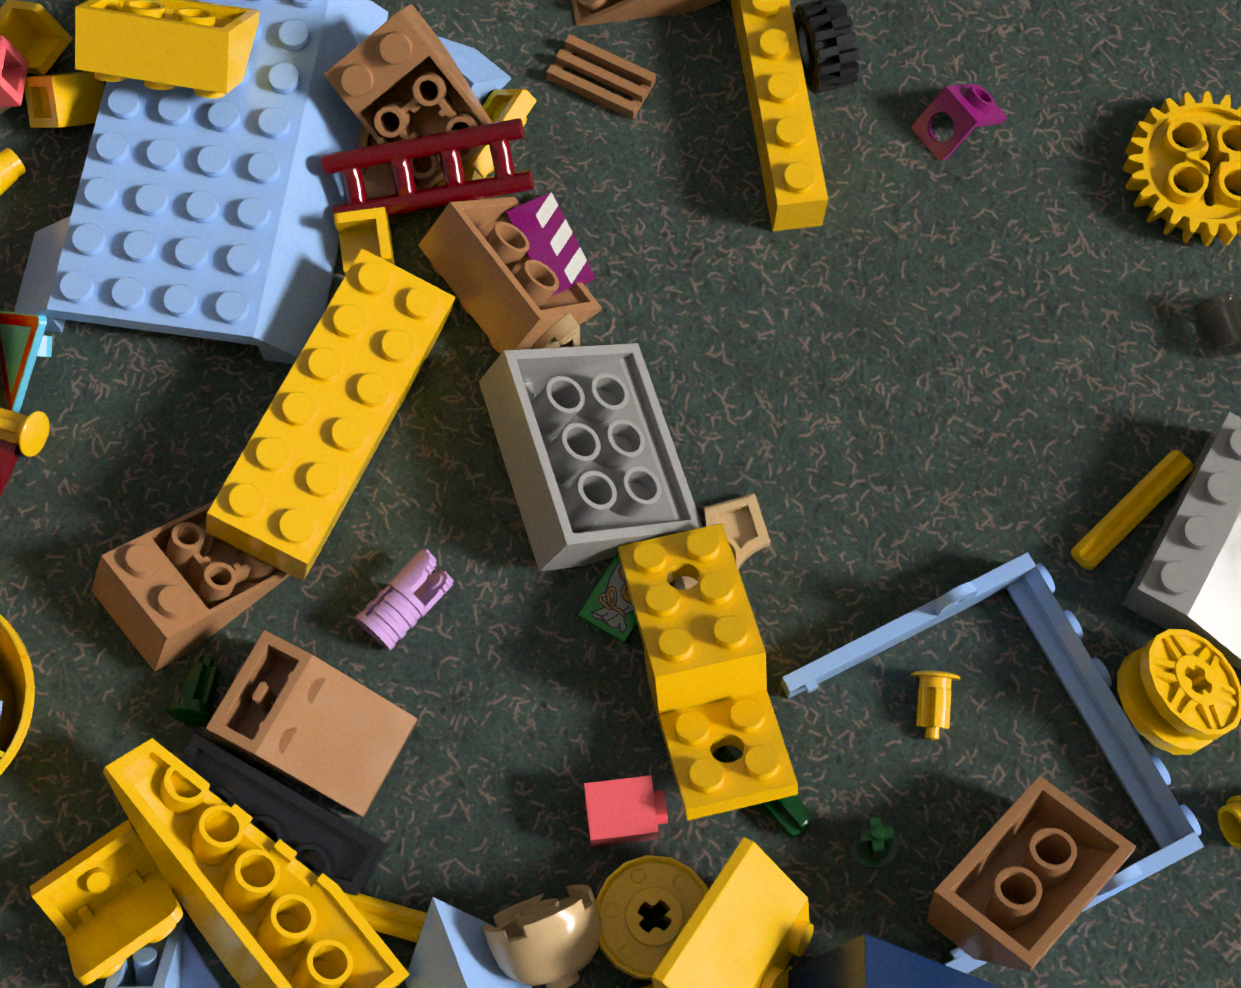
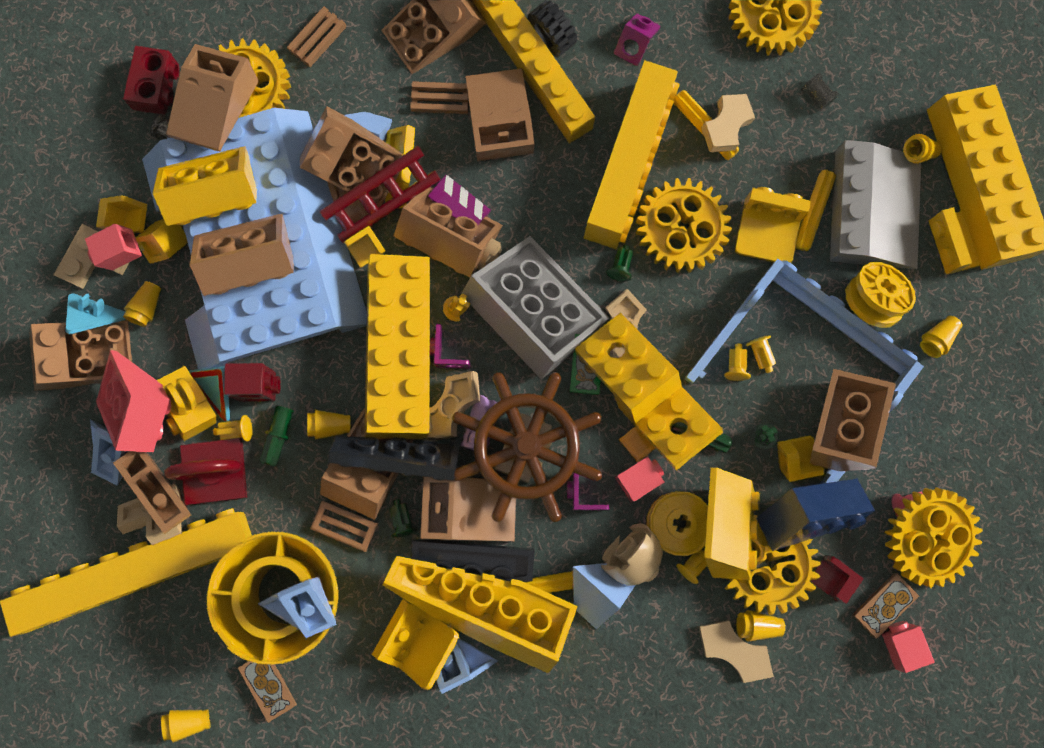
camera: 25 degrees left, 10 degrees up
(74, 468) = (276, 435): none -> dark green axle
(76, 363) = (251, 382): none -> dark red brick
(131, 694) = (366, 535): none -> medium nougat tile
(161, 486) = (327, 424): none -> yellow cone
(163, 163) = (241, 255): none -> medium nougat slope
(240, 579) = (398, 456): none -> black wing
(392, 535) = (459, 394): none -> tan tile
(394, 450) = (435, 350): none -> magenta bracket
(455, 664) = (525, 445): none -> reddish brown brick
(460, 398) = (455, 307): none -> yellow piece
(499, 782) = (573, 493): none -> magenta bracket
(647, 752) = (636, 444): none -> light orange tile
(678, 139) = (500, 114): none -> medium nougat slope
(762, 452) = (620, 268): none -> dark green piece
(856, 286) = (632, 155): none -> yellow brick
(881, 700) = (737, 364): none -> yellow piece
(905, 906) = (795, 458): none -> yellow panel
(944, 438) = (708, 216): none -> yellow gear
(1009, 297) = (697, 116): none -> yellow axle
(1044, 497) = (770, 224): none -> yellow bracket
(1060, 299) = (733, 113): none -> tan tile

